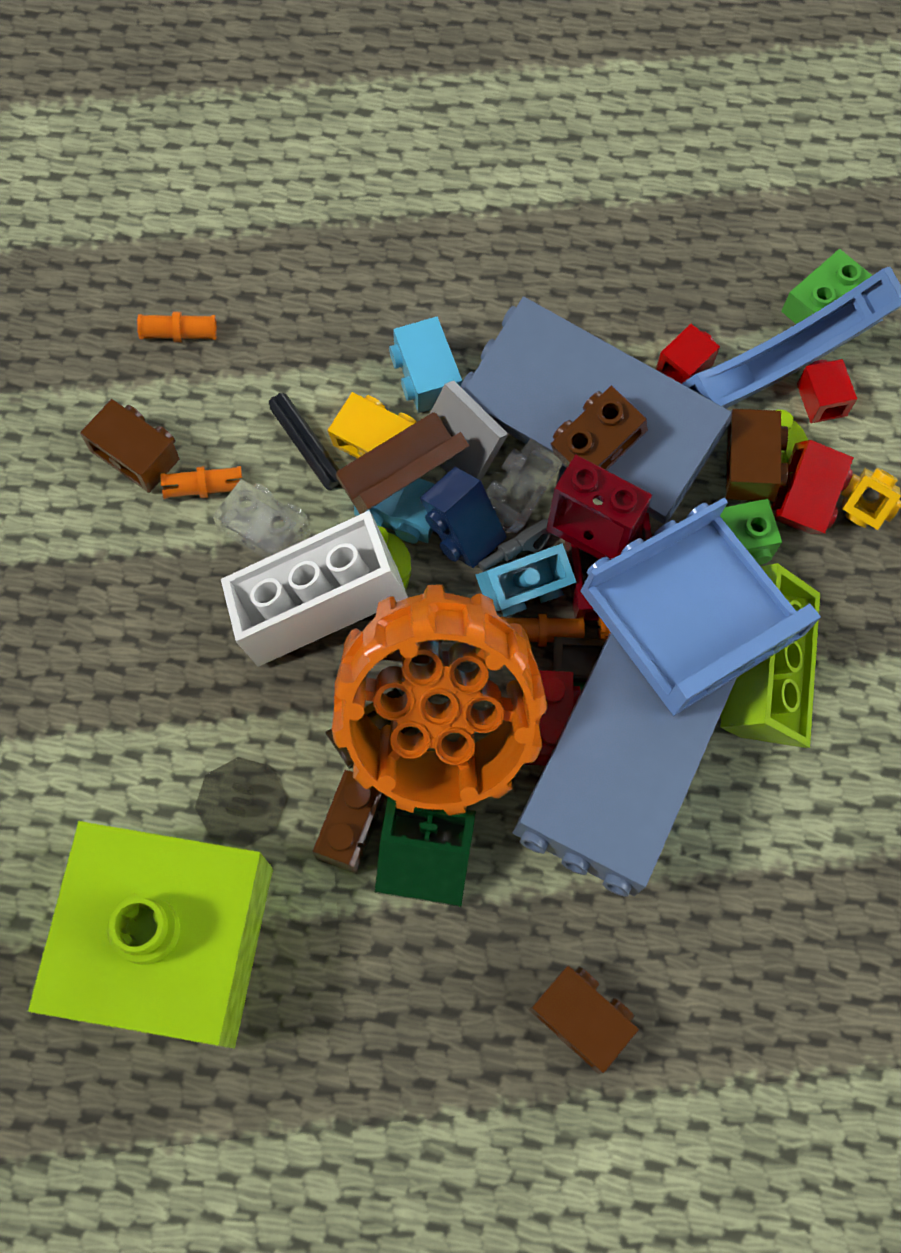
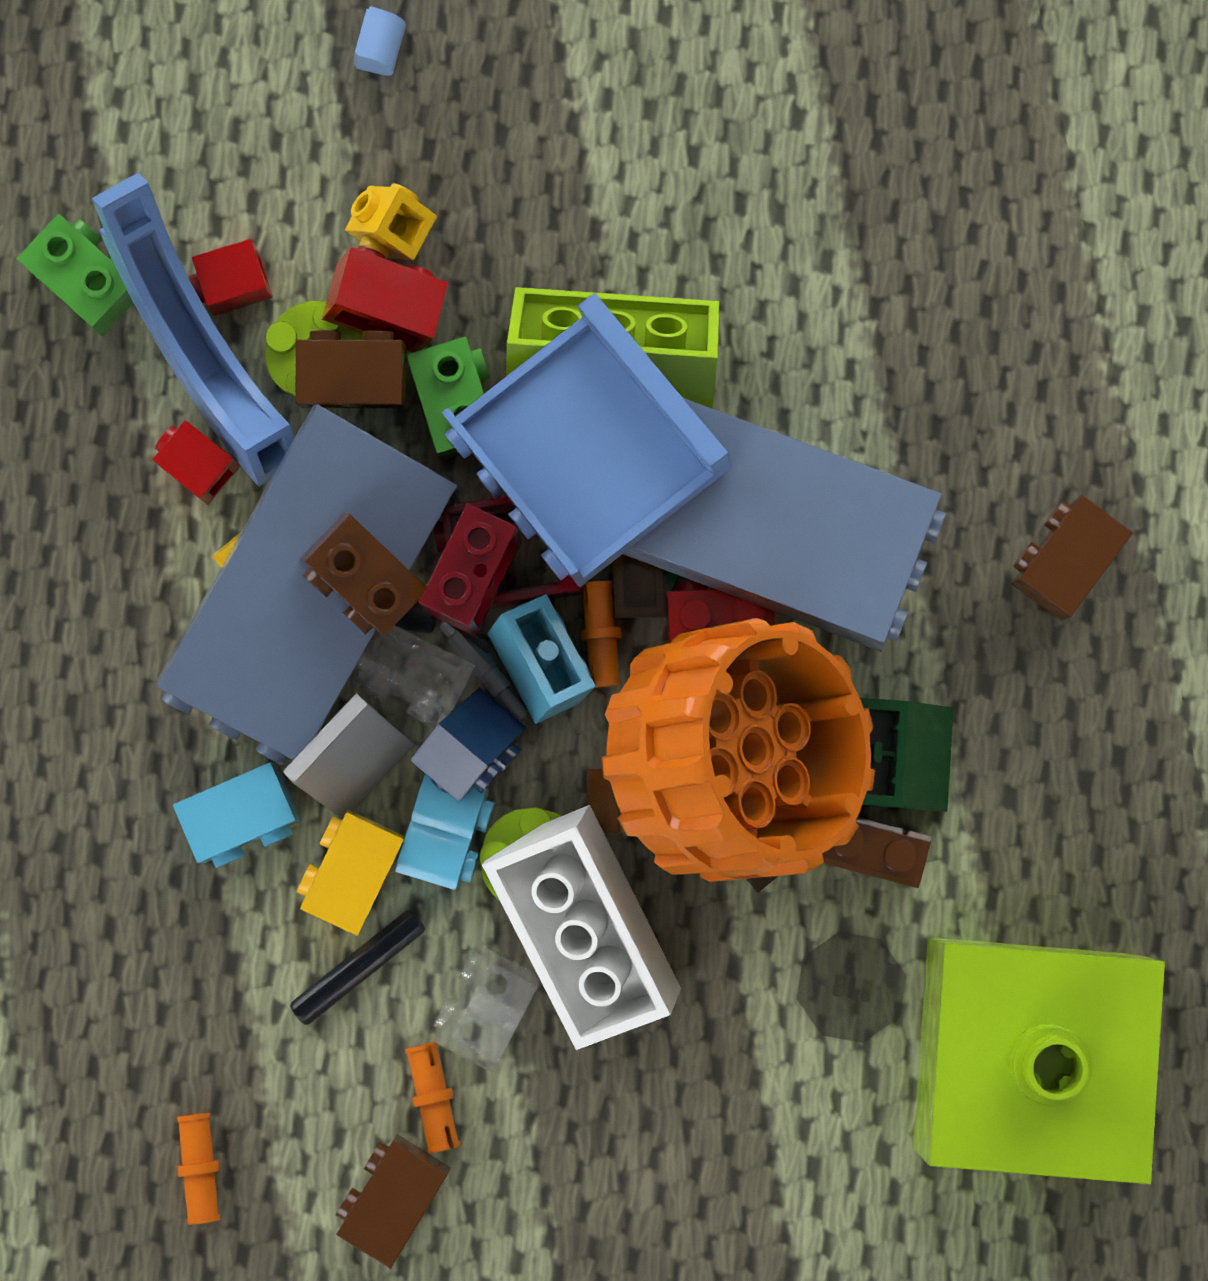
camera: 90 degrees left, 15 degrees up
(399, 462) = (405, 831): reddish brown panel -> none

